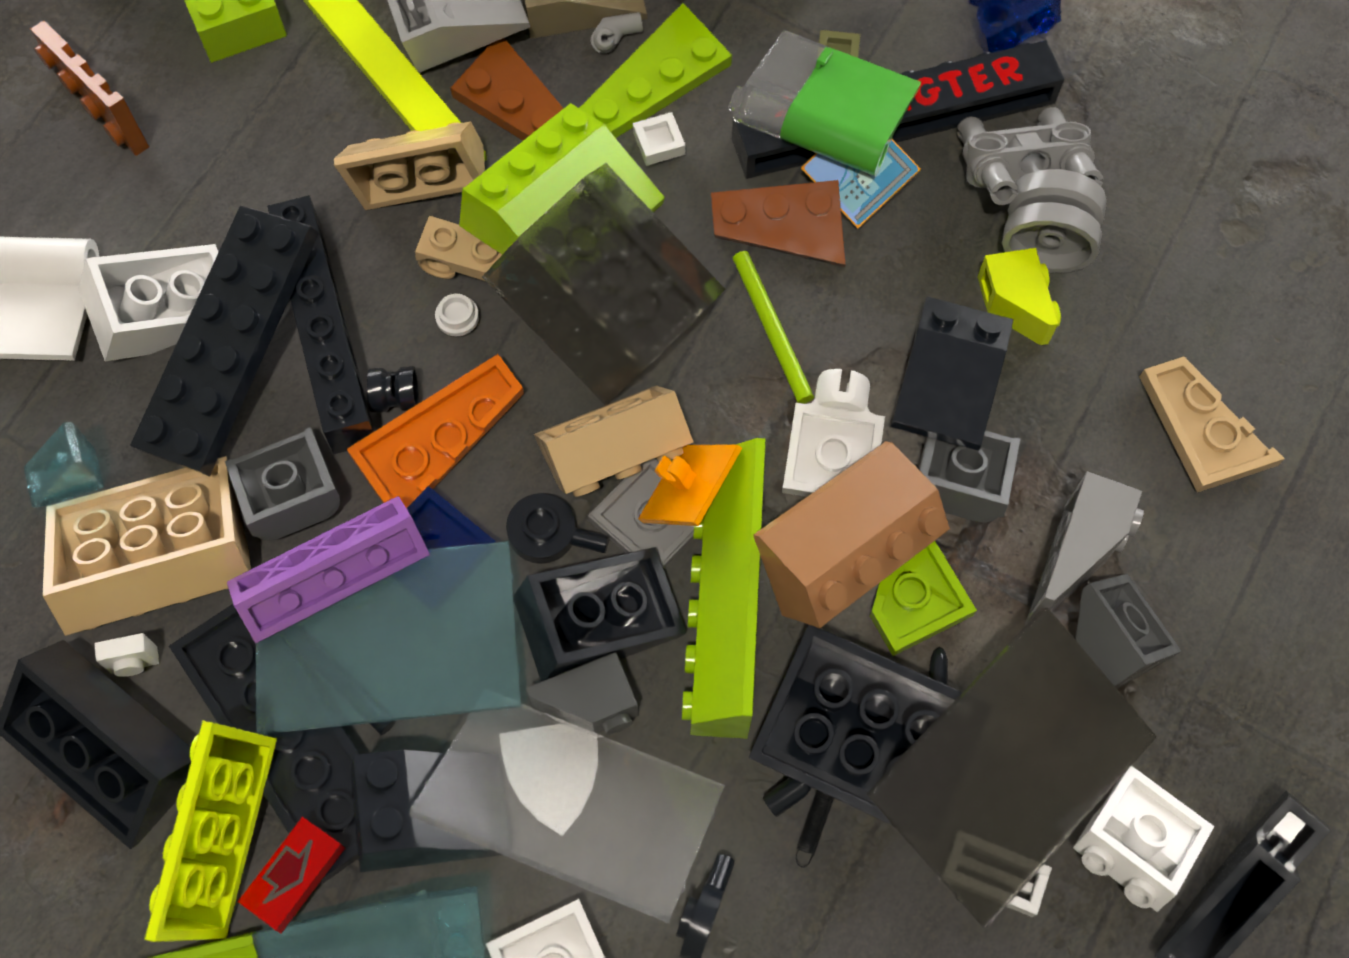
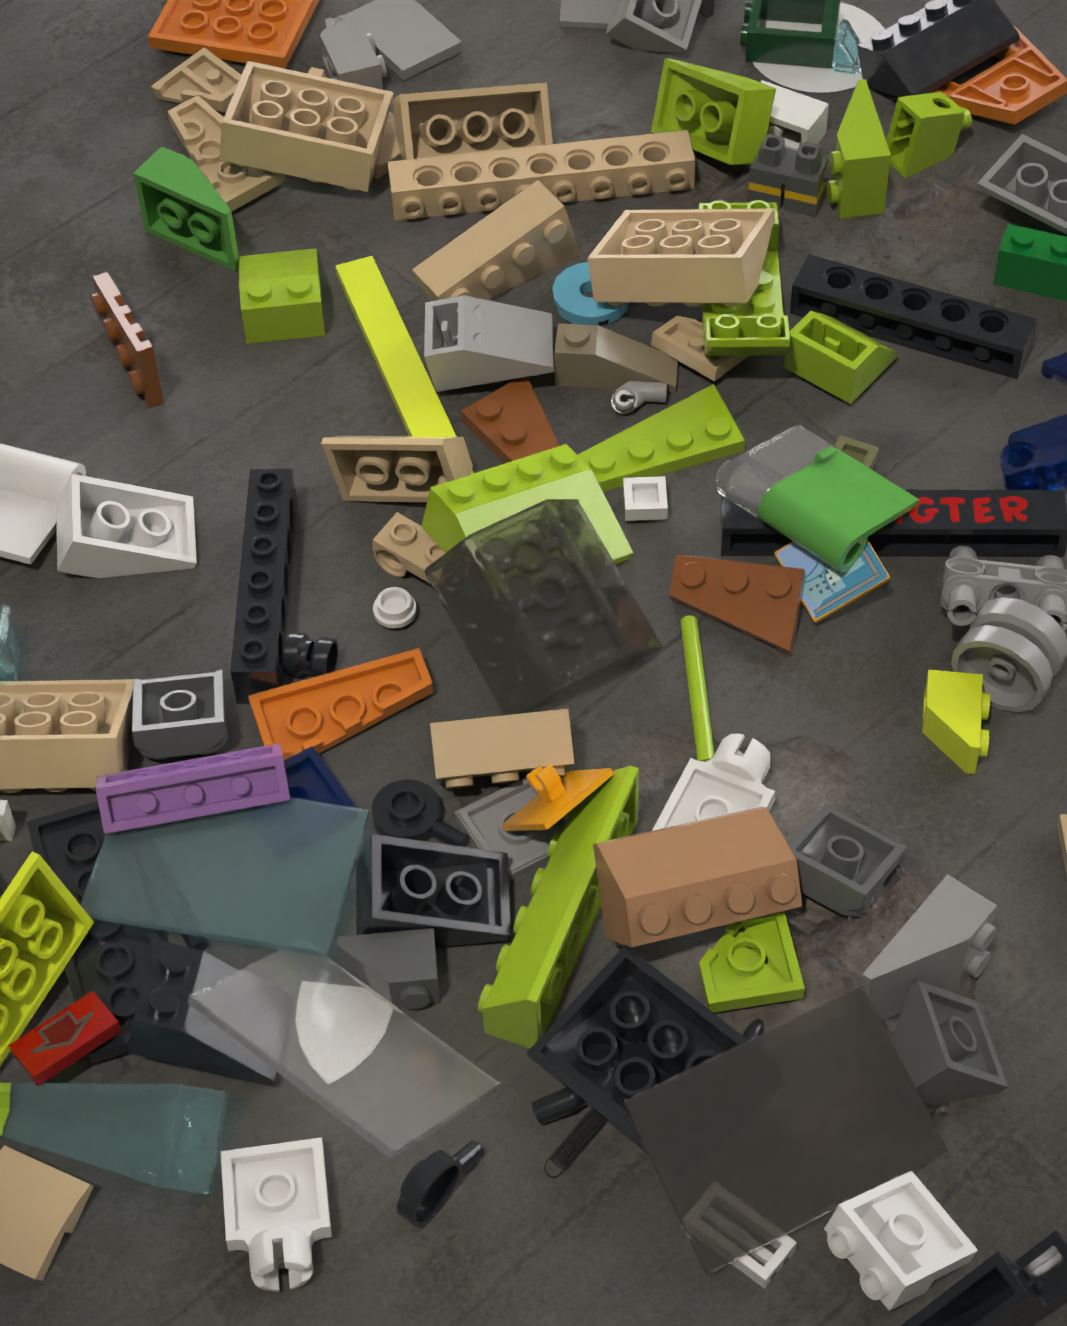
camera: 20 degrees right, 15 degrees down
(224, 340) = (170, 574): black plate -> none
(952, 373) = (857, 767): black slope -> none

